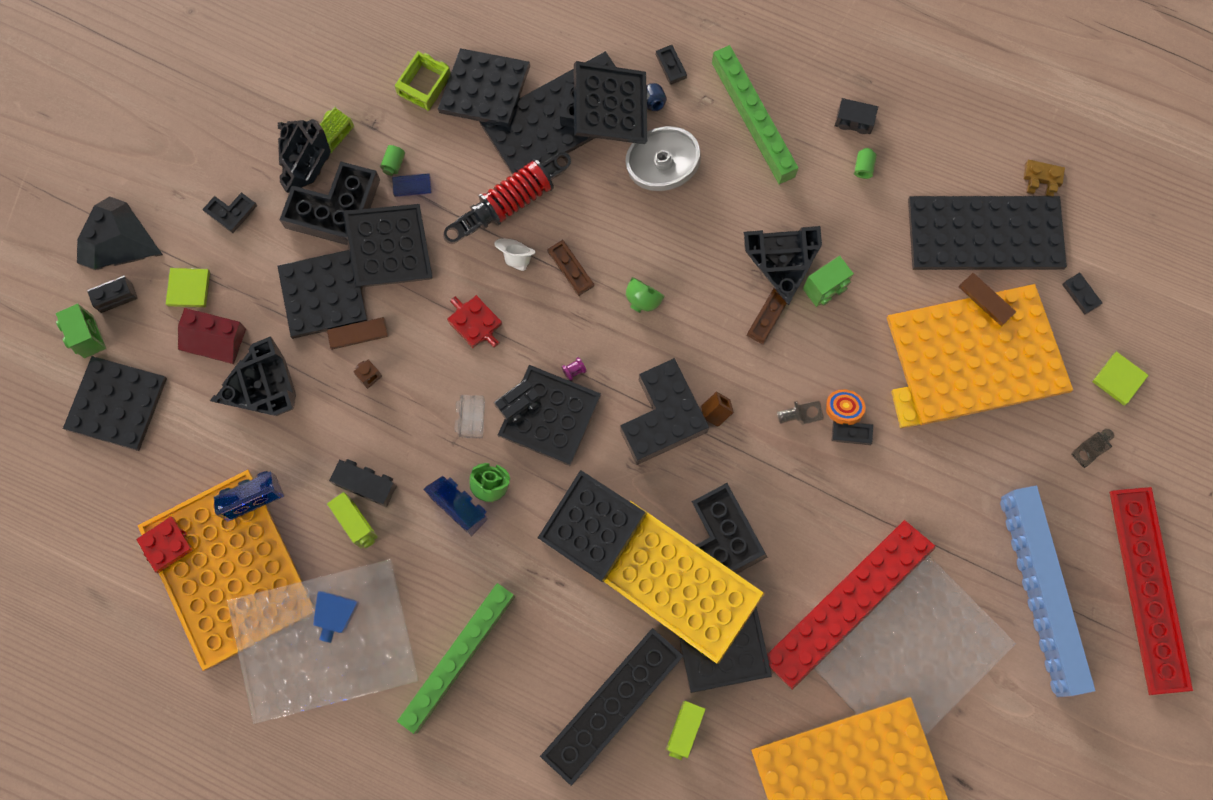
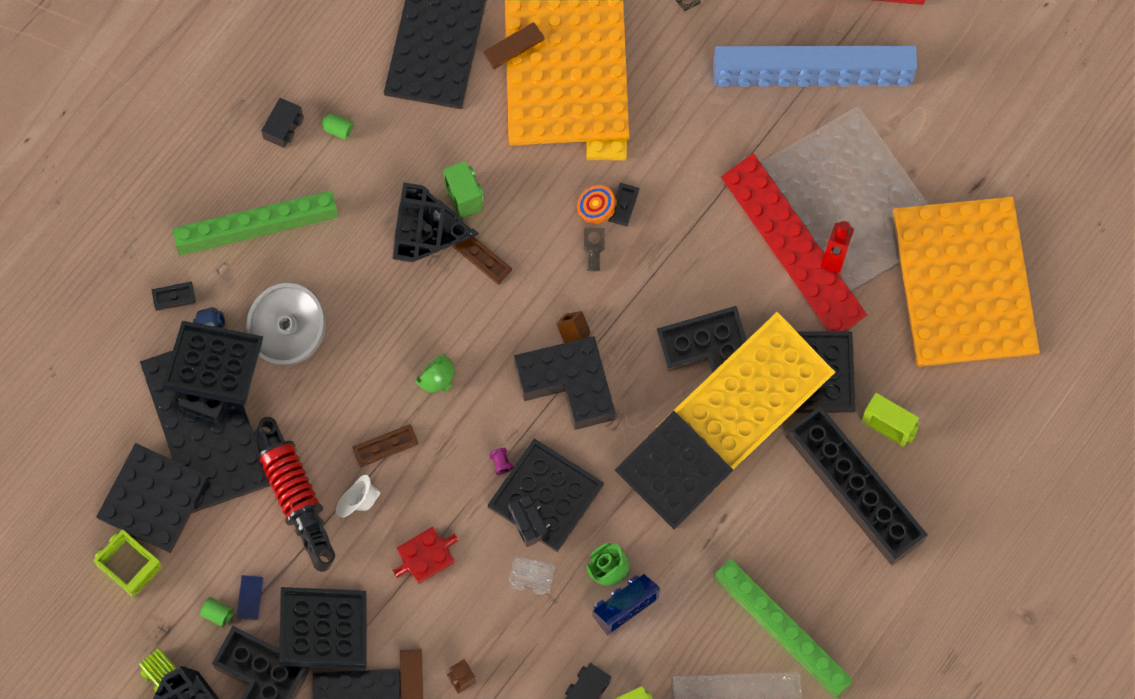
camera: 80 degrees left, 5 degrees down
(859, 645) = (840, 237): none -> red torso

